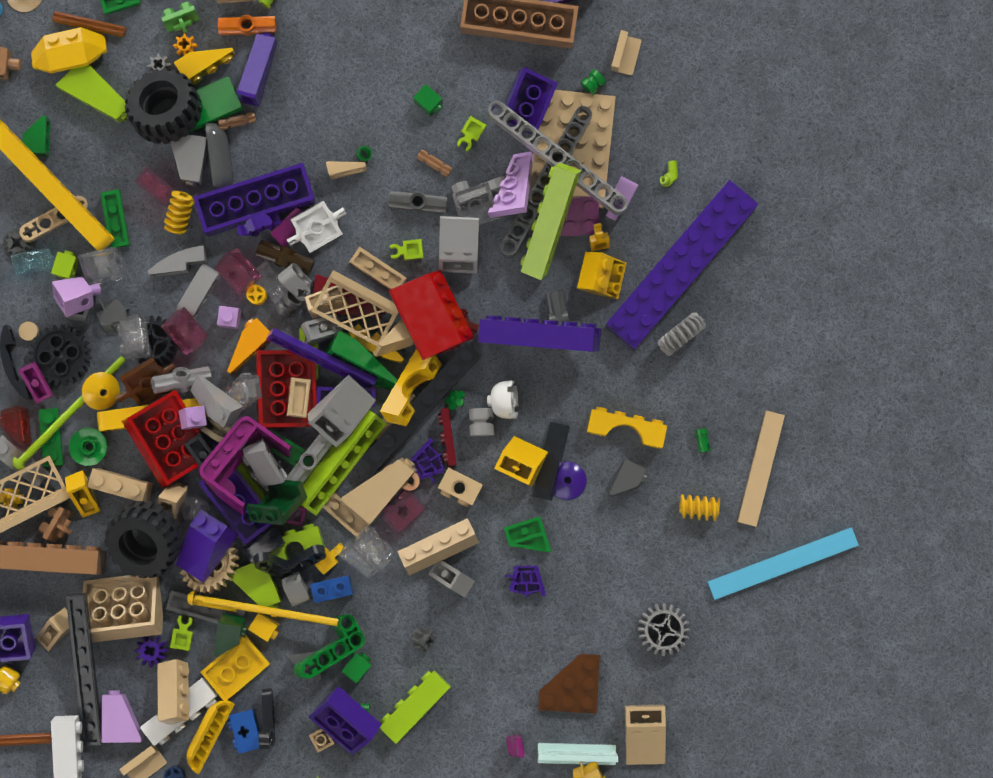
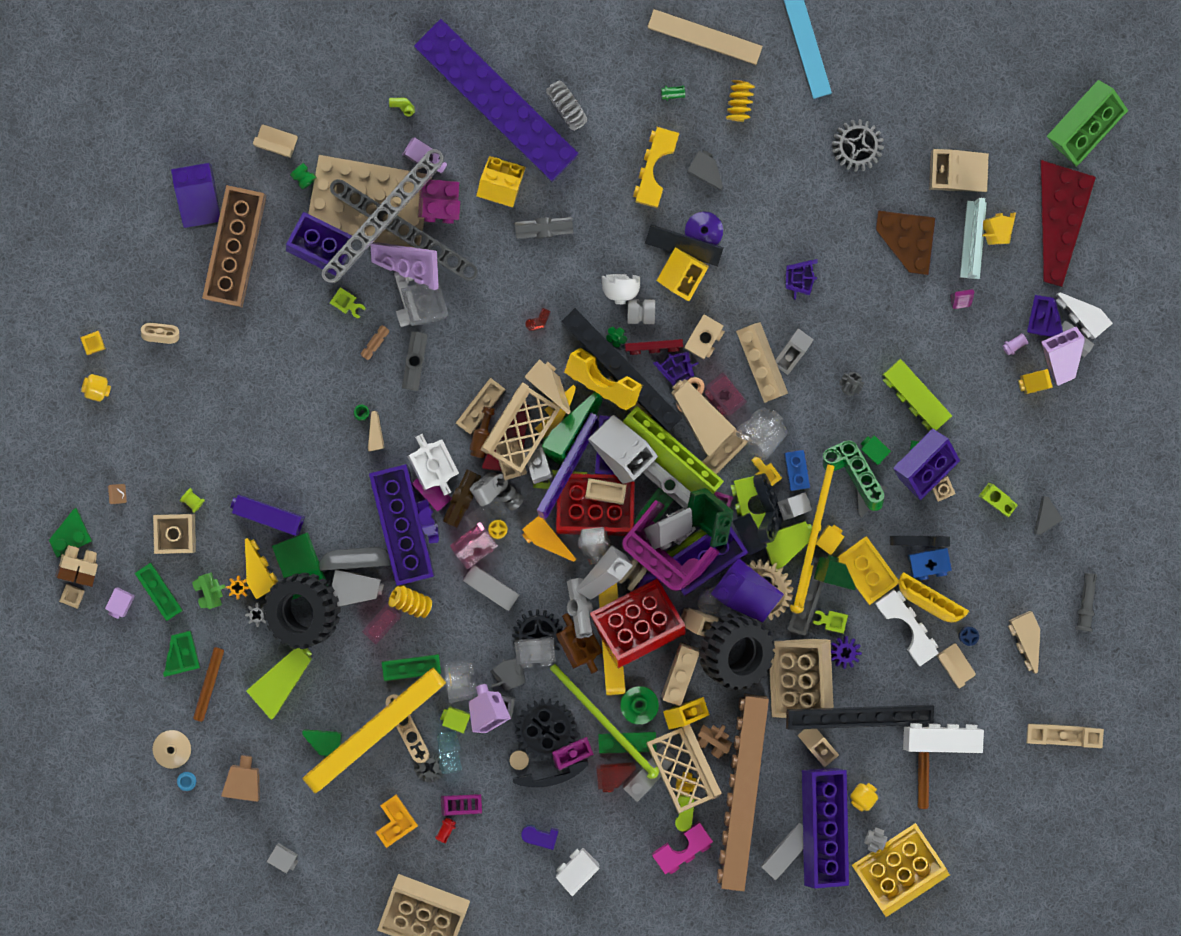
camera: 85 degrees left, 5 degrees up
(68, 50) = (236, 706): yellow wedge -> none
(93, 386) = (584, 697): yellow dish -> none
(118, 719) = (911, 687): lavender slope -> none
(173, 691) = (887, 630): tan brick -> none
(179, 262) = (460, 605): light grey slope -> none
(184, 331) = (530, 601): clear pink brick -> none
(192, 417) = (619, 596): lavender brick -> none
(199, 447) = (651, 591): black slope -> none
(229, 317) = (519, 557): lavender brick -> none
(234, 25) = (221, 537): orange piece -> none
(237, 120) = (319, 539): medium nougat axle -> none
(349, 271) = (480, 435): none -> reddish brown piece
(411, 250) = (462, 370): lime plate -> none
(428, 100) = (311, 344): green brick -> none
(431, 315) = (531, 353): red slope -> none
(458, 244) = (463, 321): light grey slope -> none
(528, 535) = (756, 273): green wing -> none
(536, 334) = (559, 246): dark purple brick -> none
(550, 220) = (446, 228): lime brick -> none
(599, 240) = (464, 181): yellow plate -> none

